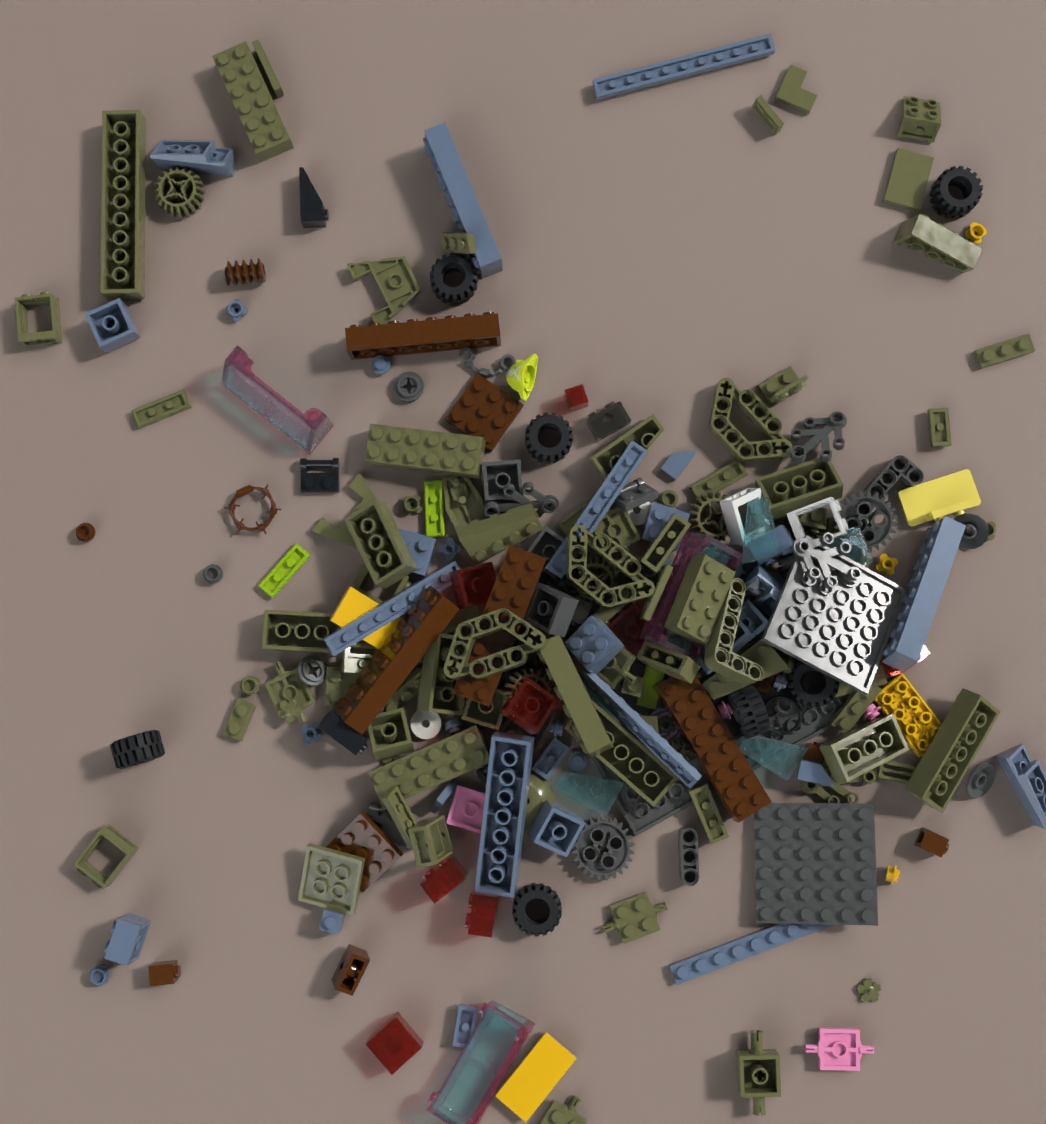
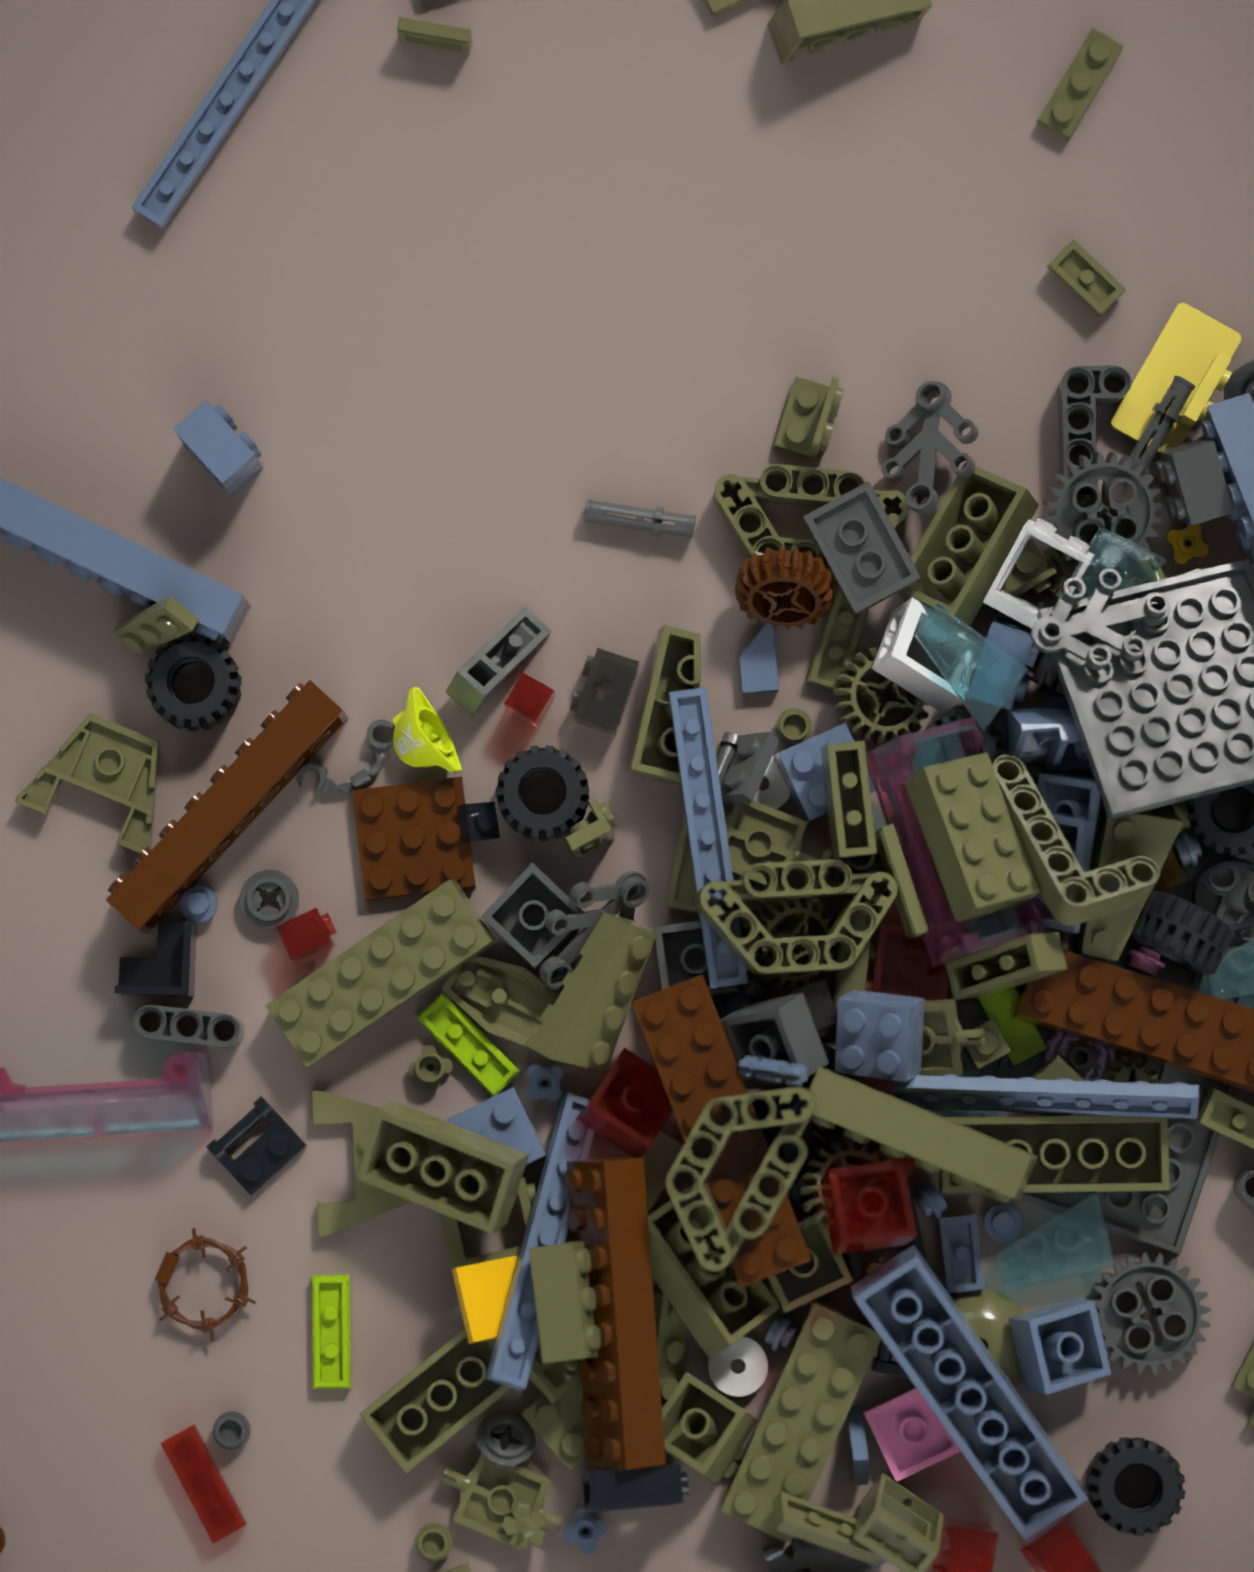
camera: 40 degrees left, 0 degrees up
(184, 584) = (204, 1483): none -> clear red plate
(331, 398) = (171, 1020): none -> dark grey beam
(347, 381) = (170, 972): none -> black panel
(379, 636) = (564, 1302): none -> olive brick
(410, 411) = (307, 934): none -> clear red brick
(514, 427) = (478, 822): none -> black plate
(539, 619) = (772, 1071): none -> sand blue axle
(544, 197) = (214, 443): none -> sand blue brick
(552, 470) = (590, 836): none -> olive bracket
(576, 372) = (497, 661): none -> dark grey slope
(695, 383) = (683, 526): none -> dark grey pin
(713, 441) = (784, 587): none -> reddish brown gear
(757, 452) = (862, 548): none -> dark grey plate
(911, 542) = (1193, 482): none -> dark grey brick
(920, 507) = (1178, 390): none -> dark grey pin

